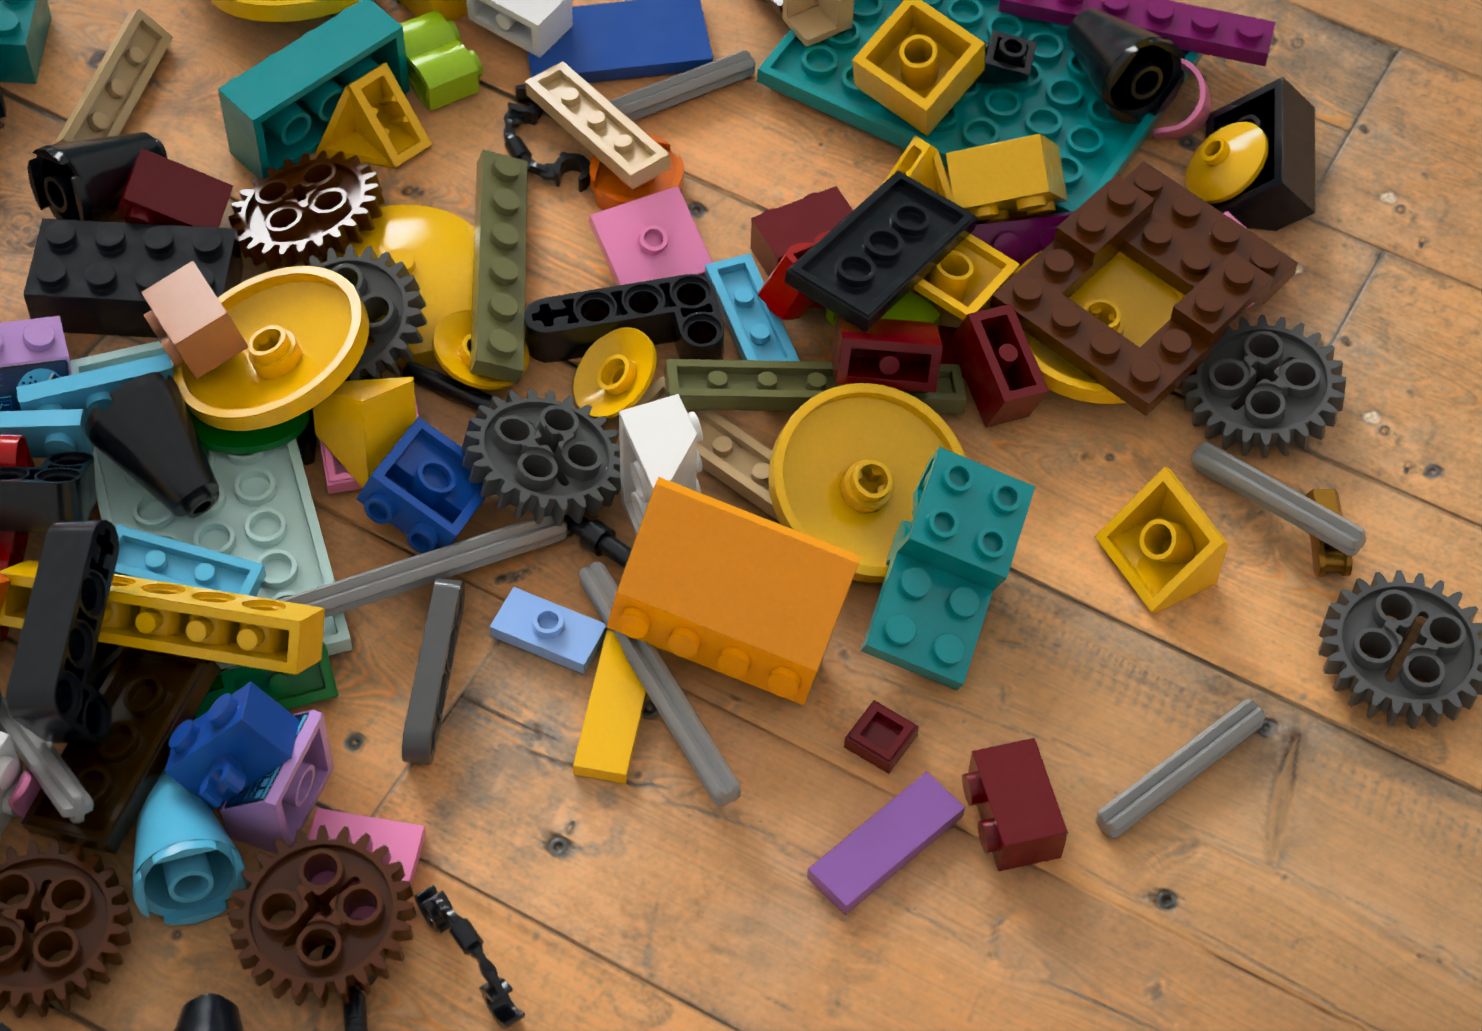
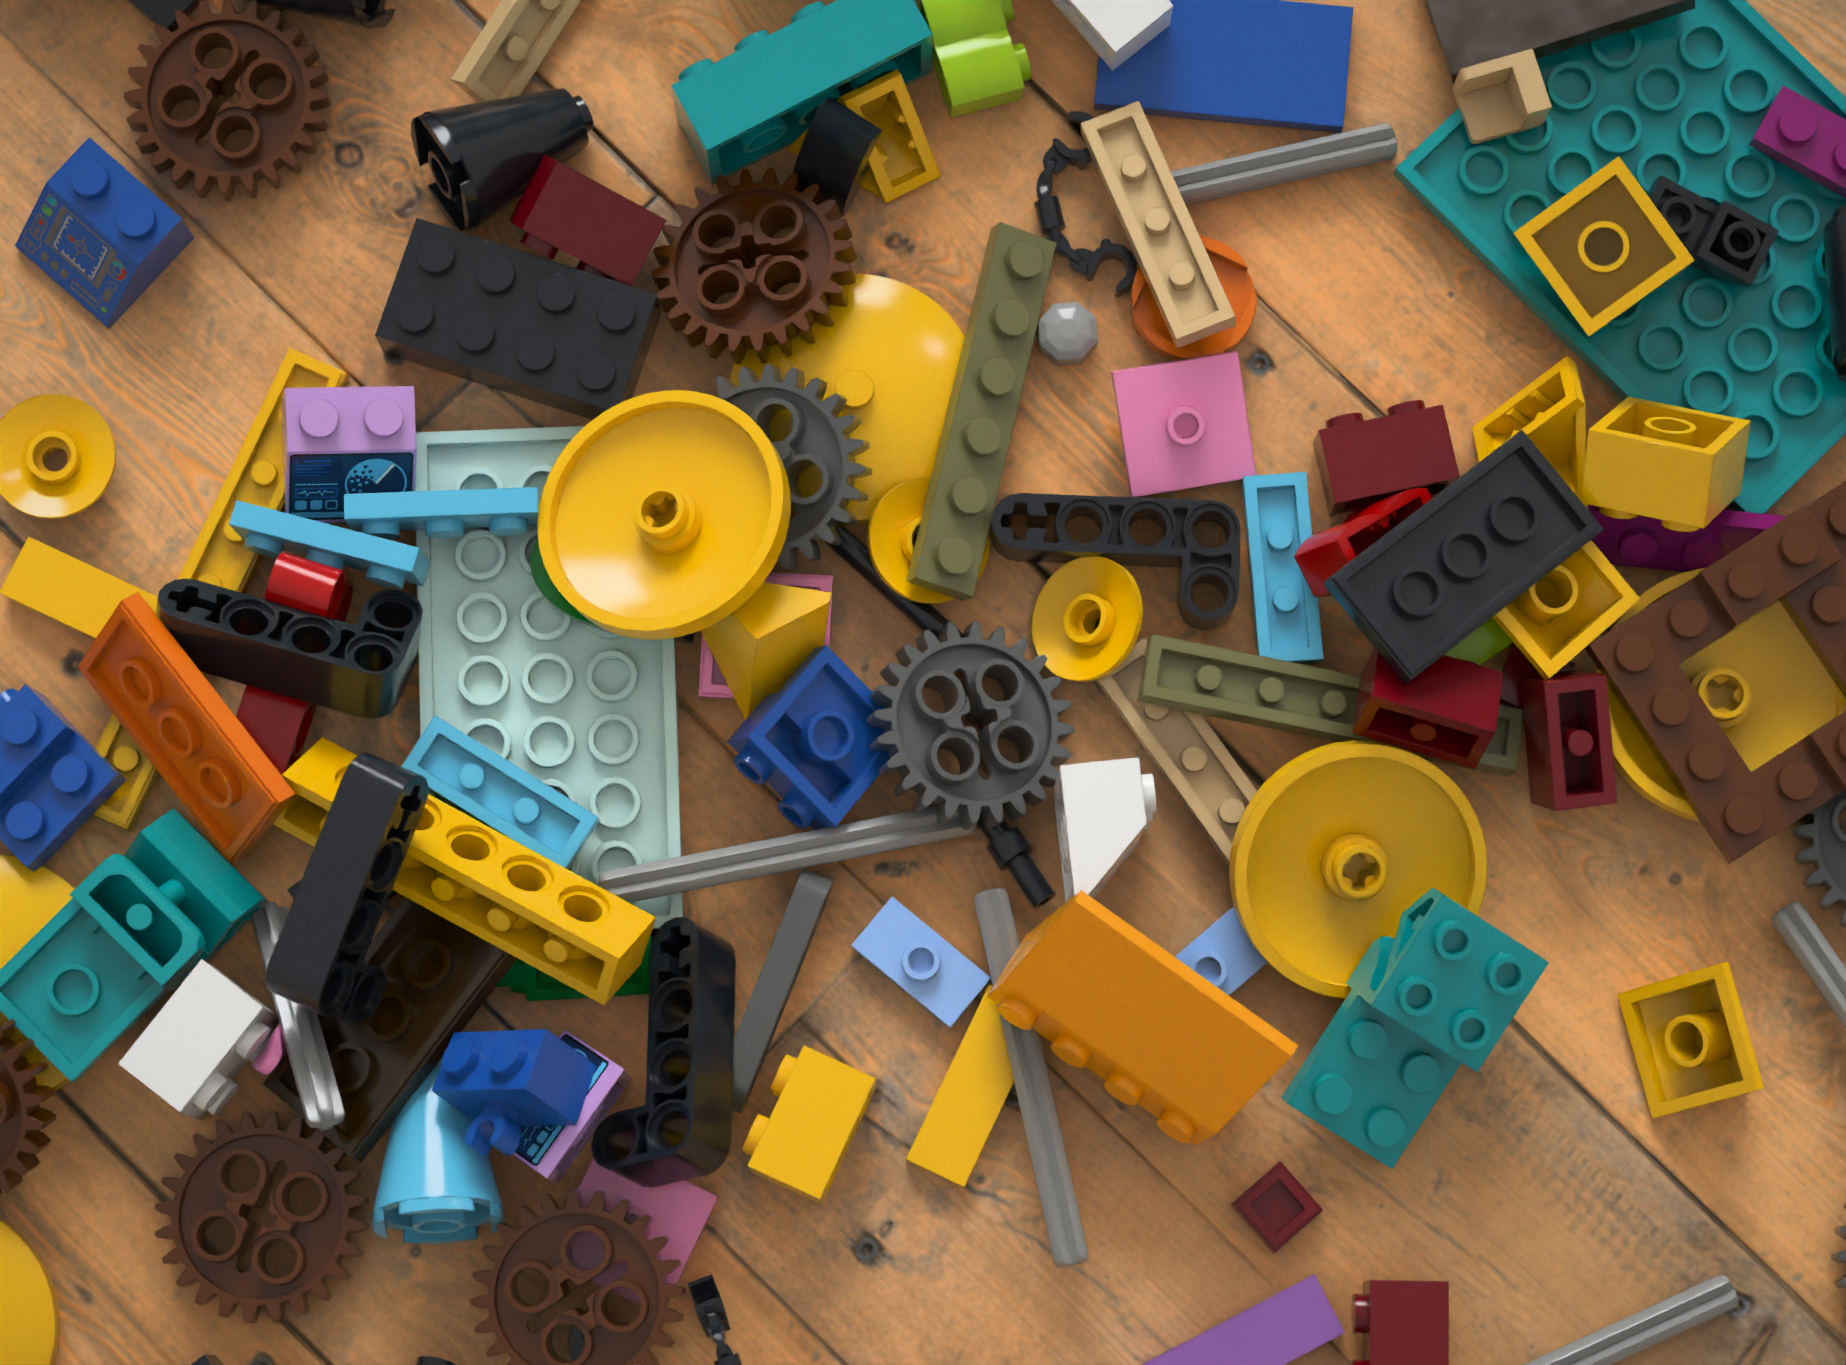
camera: 15 degrees right, 25 degrees up
(156, 443) = (503, 622): black cone -> none
(192, 321) = (574, 455): brick -> none
(350, 121) = (836, 152): none -> black slope
(379, 727) = (689, 1065): none -> black beam
(487, 742) = (810, 1124): none -> yellow brick
(550, 214) = (1067, 333): none -> light grey tile

